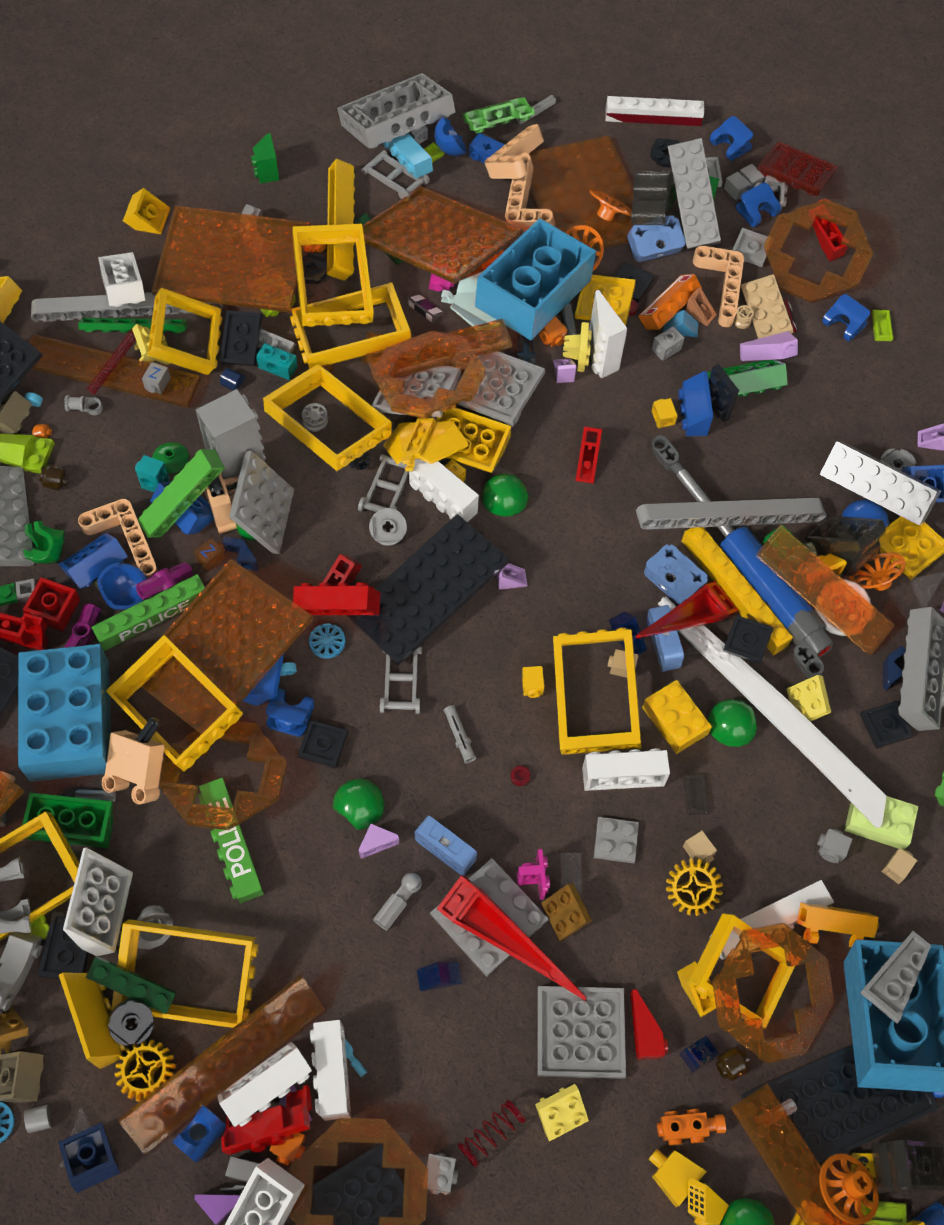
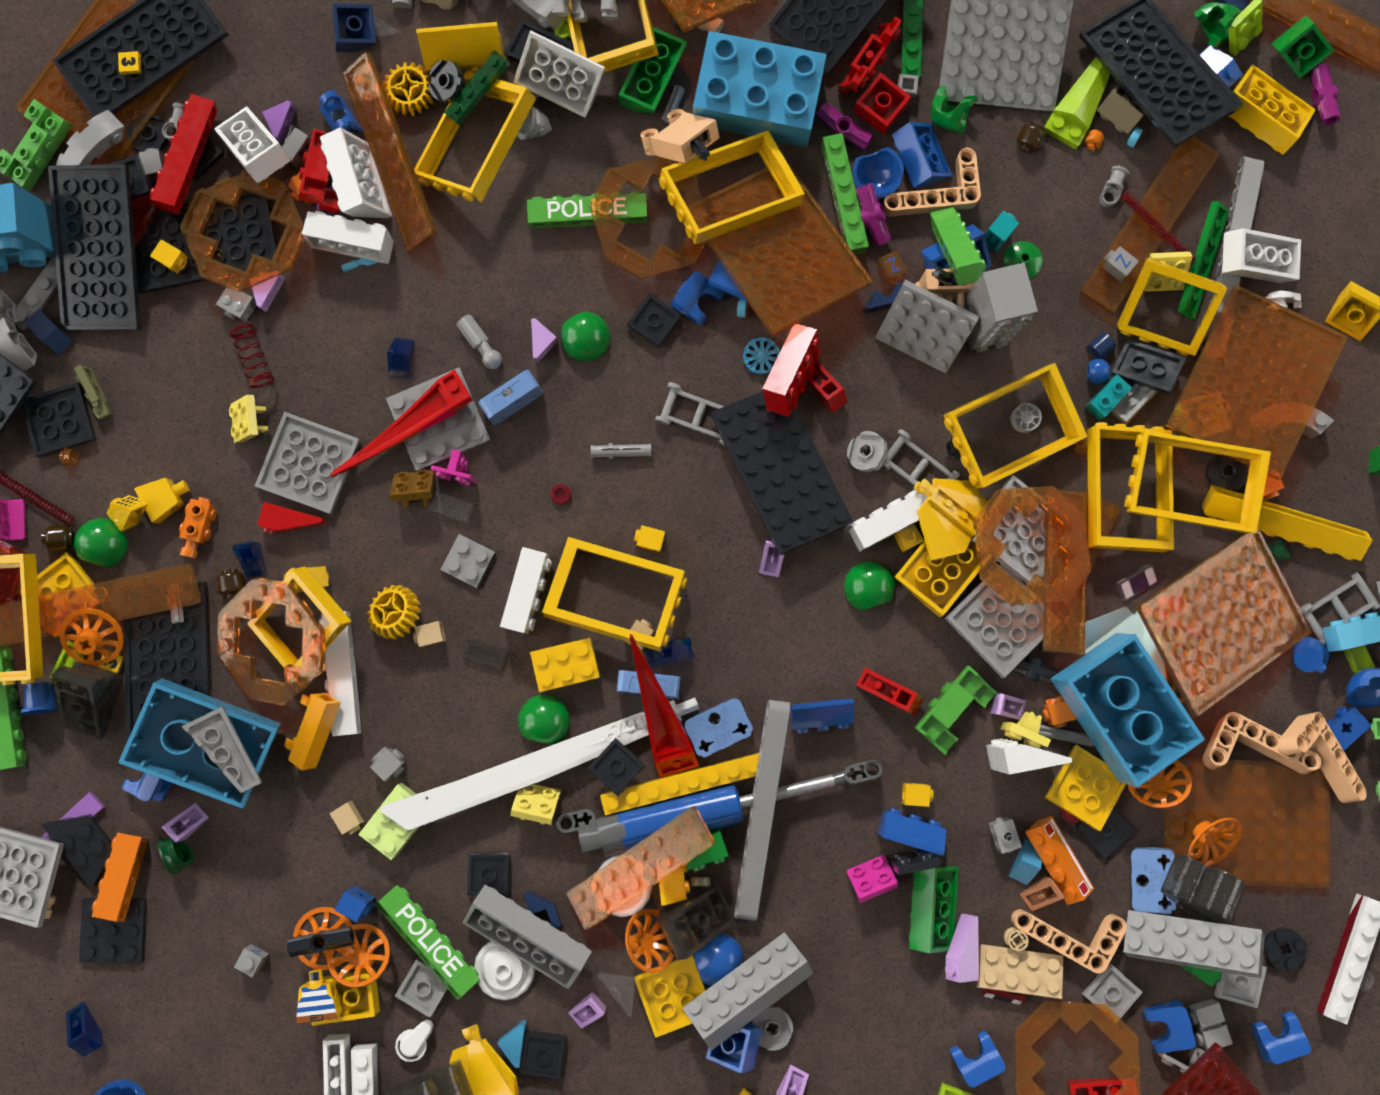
camera: 110 degrees right, 20 degrees up
(151, 262) = (1284, 297): none -> white piece
(255, 375) = (1098, 371): none -> blue piece
(419, 1145) = (266, 291): none -> lavender slope
(442, 179) = (1310, 655): none -> blue hat
(582, 406) = (949, 706): none -> bright green bracket
(625, 494) = (822, 715): none -> blue slope
(746, 424) = (872, 879): none -> dark pink bracket

